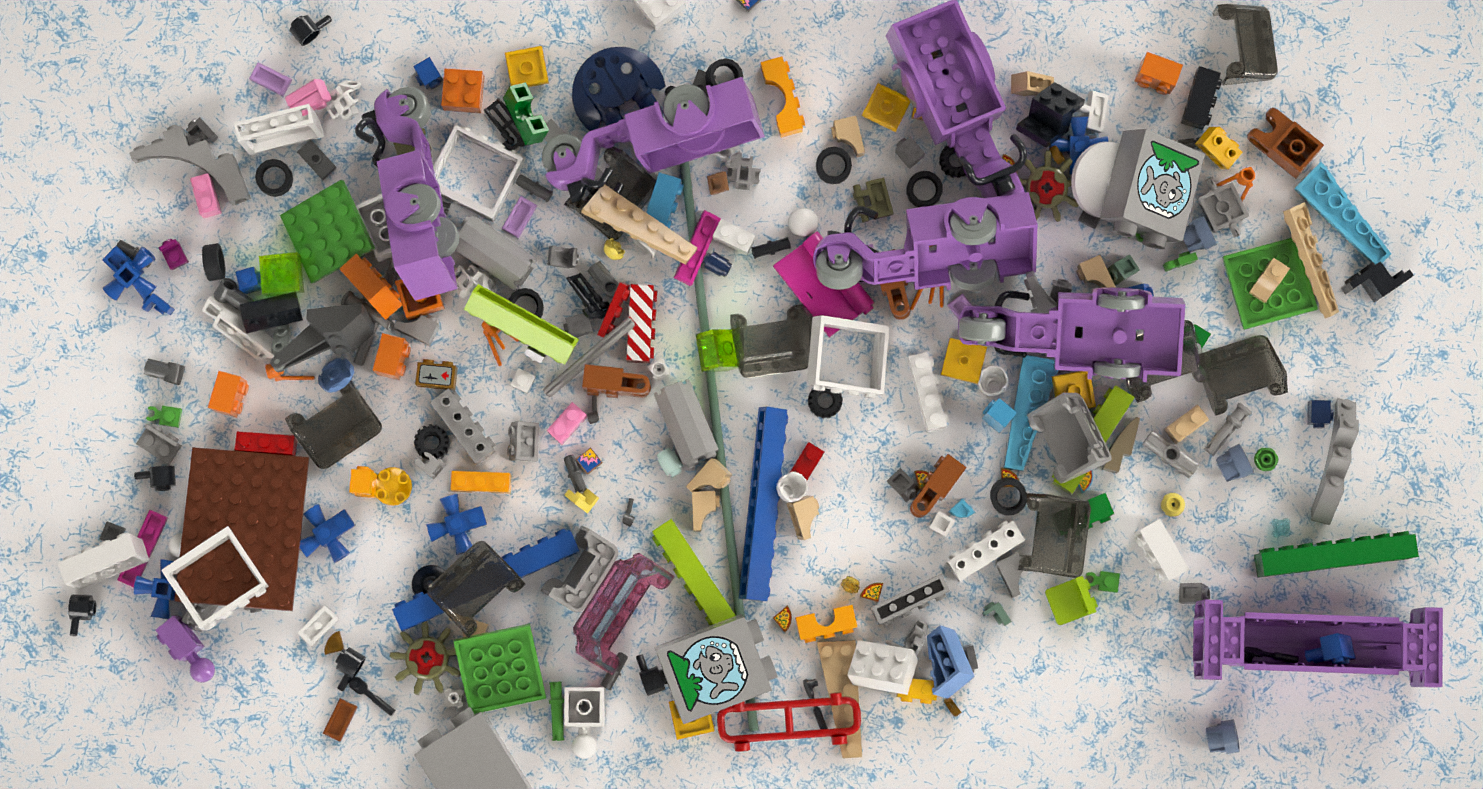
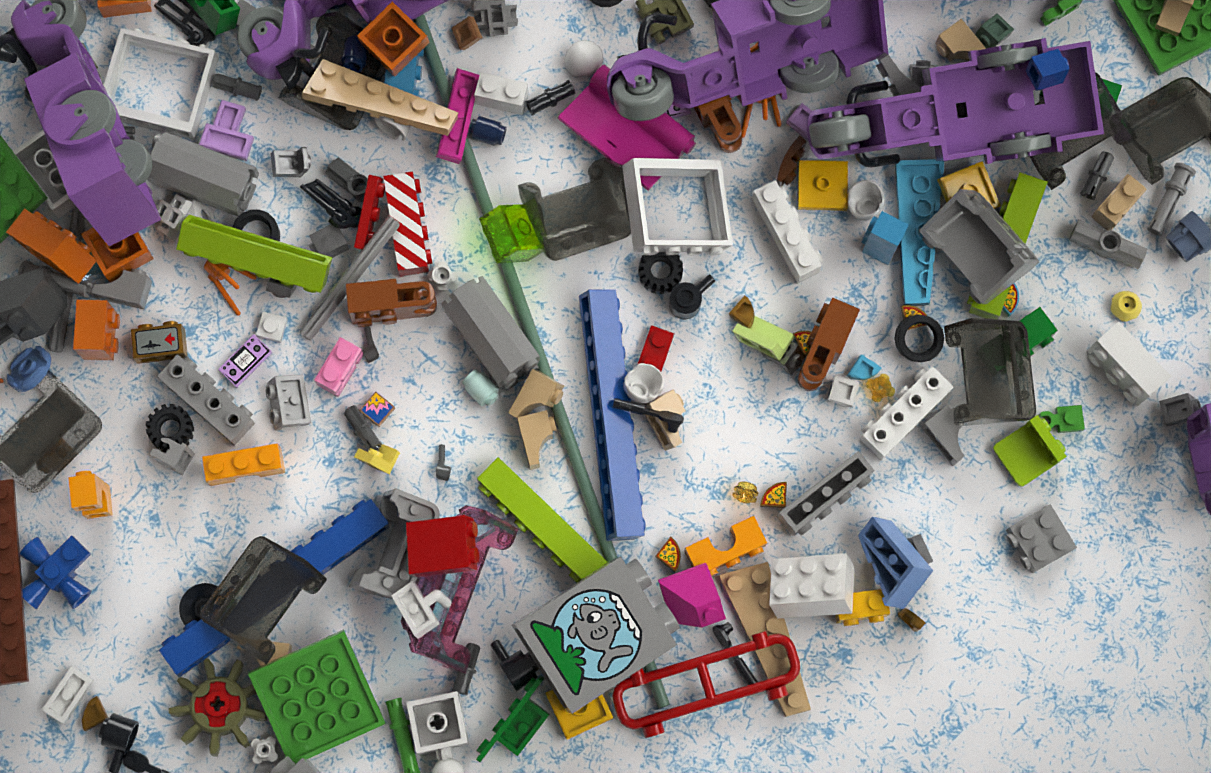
camera: 15 degrees left, 5 degrees down
(393, 486) = (131, 494): yellow dish -> none
(457, 523) = (223, 522): blue brick -> none
(497, 402) = (245, 361): none -> tile
(517, 230) = (227, 141): none -> lavender tile
(587, 622) = (417, 608): none -> white plate
(613, 249) = (352, 140): light yellow plate -> none
(614, 580) = (442, 546): none -> red brick
(629, 183) = (354, 54): none -> dark blue brick
(645, 721) = (521, 724): none -> green bracket
(660, 181) = (393, 39): none -> orange brick
(792, 655) = (692, 597): none -> dark pink slope
(807, 519) = (674, 420): none -> black piece
(839, 427) = (687, 298): none -> black piece
(880, 447) = (743, 312): none -> pearl gold tile
(891, 469) = (764, 338): none -> yellowish green panel
(915, 638) = (844, 541): light grey piece -> none
(939, 342) = (788, 166): none -> reddish brown slope
(967, 531) = (882, 380): none -> clear yellow plate
(1000, 614) = (944, 487): sand green bracket -> none
(1063, 668) = (1040, 539): none -> light grey plate
(1122, 446) = (1046, 247): dark tan slope -> none
(1148, 319) = (1047, 69): none -> blue brick
(1176, 398) = (1097, 175): none -> dark grey axle

